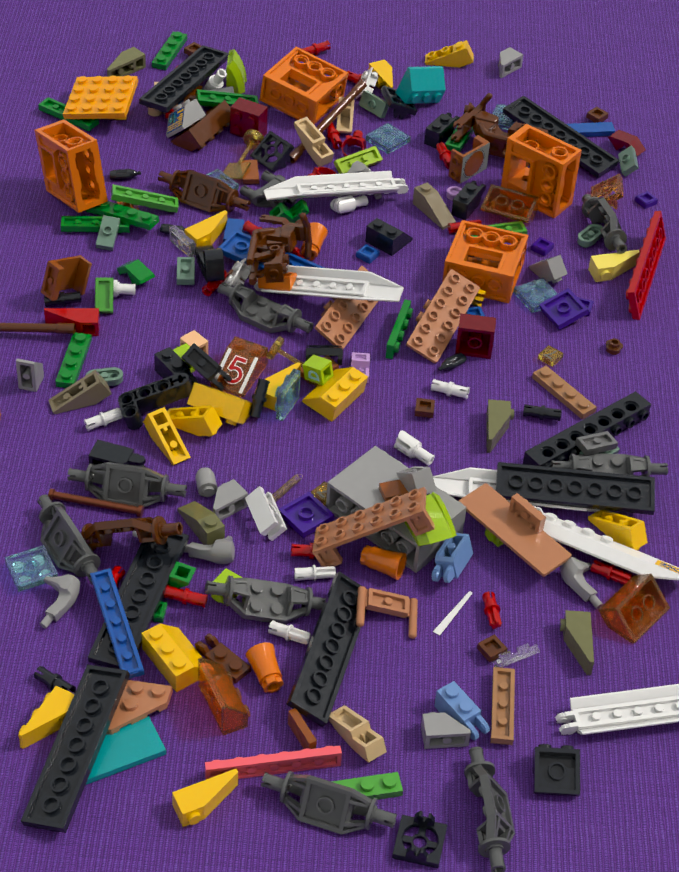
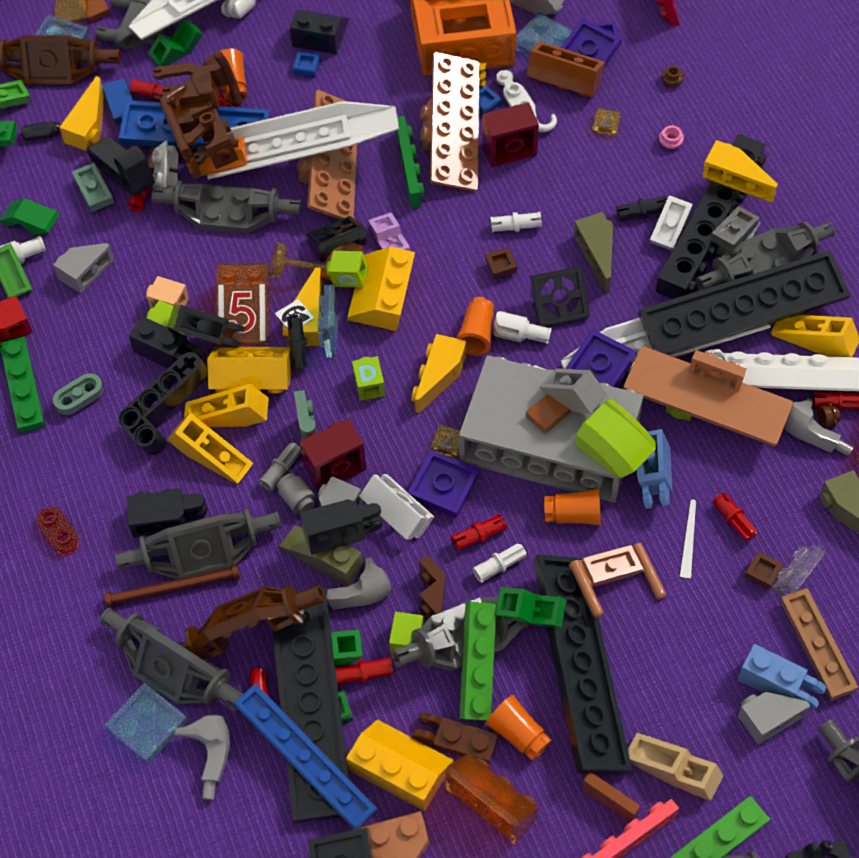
camera: 20 degrees left, 15 degrees up
(44, 446) = (57, 528): none -> clear red plate
(81, 394) = (63, 434): dark tan slope -> none
(103, 419) = (111, 457): white axle -> none
(152, 309) = (83, 265): none -> light grey slope
(182, 241) = (63, 144): clear plate -> none
(211, 463) = (280, 466): none -> light grey axle
(218, 502) = (339, 524): none -> black hinge
(236, 444) = (305, 414): none -> sand green plate
(243, 465) = (333, 453): none -> dark red brick
(262, 615) = (477, 661): none -> bright green plate
(263, 568) = (435, 579): none -> reddish brown slope
(273, 381) = (294, 308): none -> white sticker
(288, 486) = (398, 452): tan piece -> none
(289, 632) = (518, 663): white axle -> none
(294, 438) = (368, 378): none -> lime brick
(312, 597) = (530, 608): none -> green slope
(343, 451) = (442, 368): none -> yellow slope
(364, 522) = (546, 471): nougat bracket -> none
(384, 434) = (477, 326): none -> orange plant
(453, 362) = (497, 180): black piece -> none
(456, 481) = (604, 358): none -> dark purple plate
(467, 427) = (537, 283): none -> black piece
(500, 328) = (517, 95): none -> white piece
(539, 314) = (565, 69): none -> dark orange brick
(556, 424) = (671, 223): none -> white plate
(564, 392) = (649, 167): medium nougat plate -> none
(590, 380) = (671, 137): none -> bright pink plate
(596, 578) = (828, 415): none -> reddish brown plate
(616, 407) = (736, 170): none -> yellow slope

